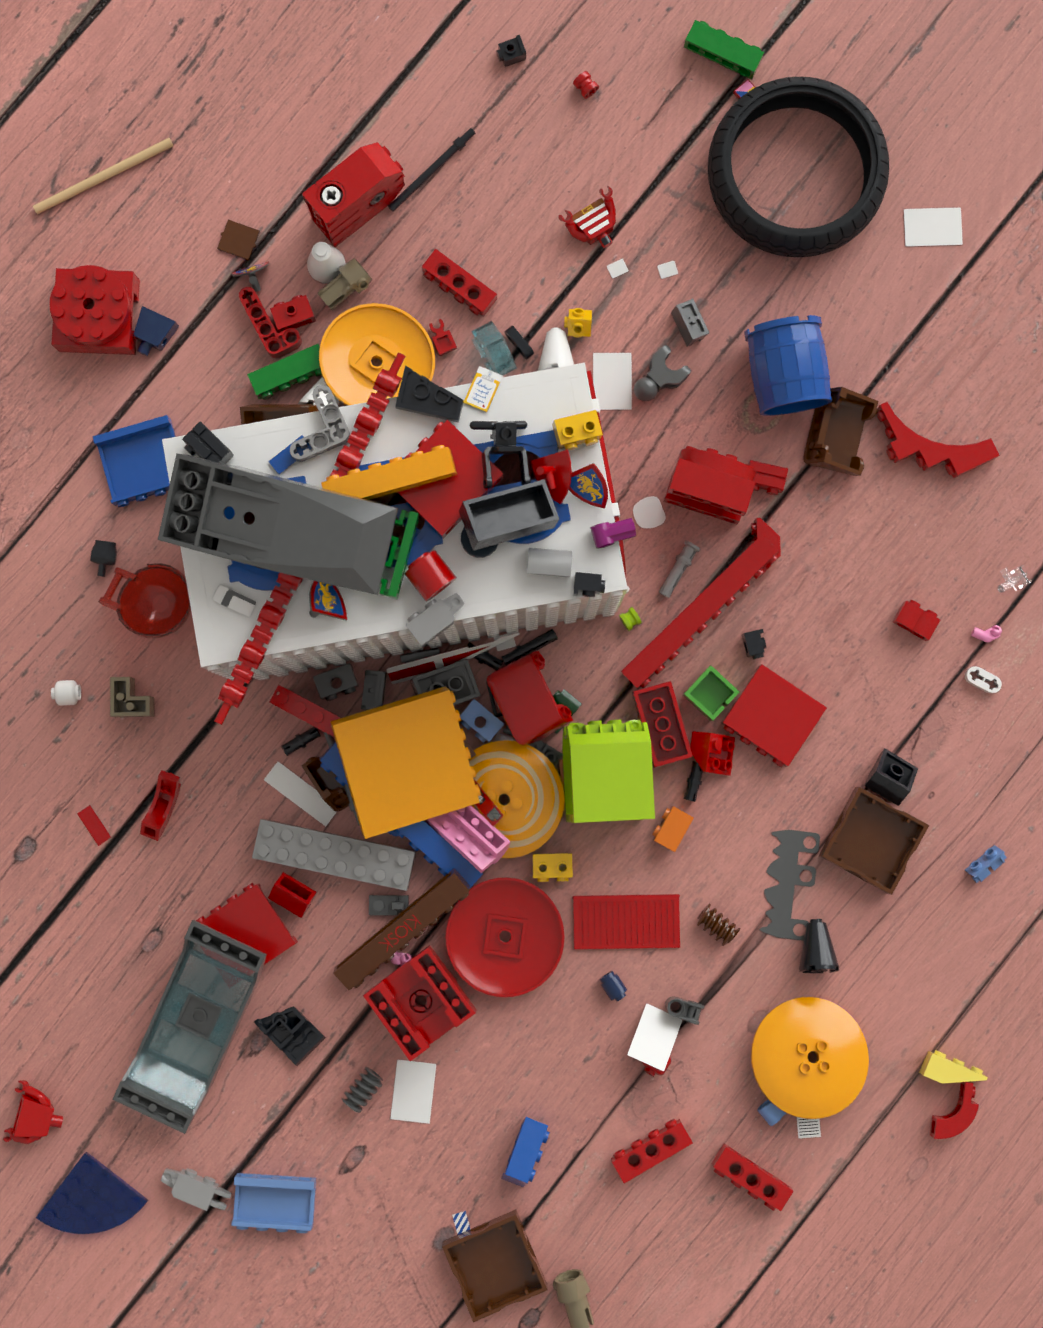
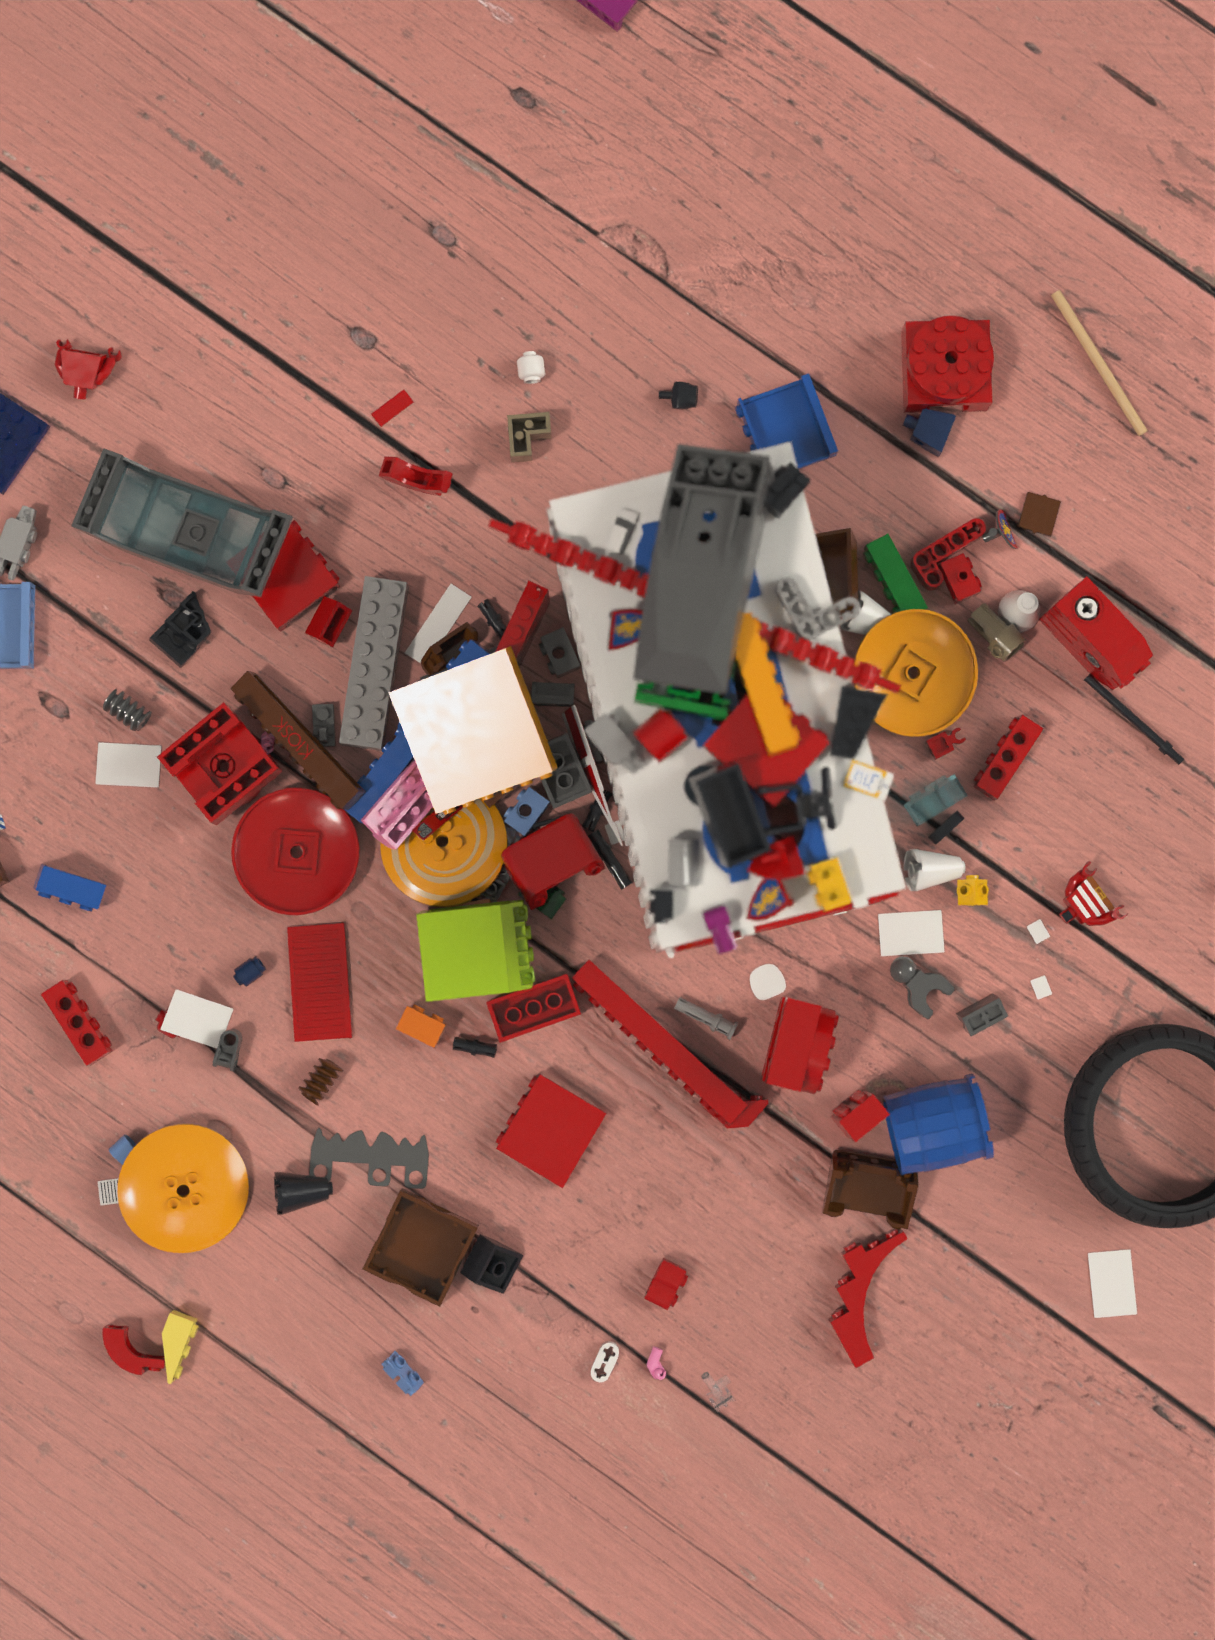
camera: 85 degrees right, 0 degrees up
(151, 600) = (633, 445): clear red windscreen -> none
(284, 458) = (776, 572): blue sticker -> none
(552, 866) = (374, 898): yellow brick -> none
(630, 619) = (647, 967): lime wheel -> none
(710, 693) = (571, 1058): bright green piece -> none
(713, 752) = (507, 1066): red slope -> none
(754, 644) = (628, 1105): black brick -> none
(769, 477) = (814, 1110): red brick -> none
(774, 1200) = (29, 1156): red brick -> none
(776, 434) = (859, 1114): none -> red brick

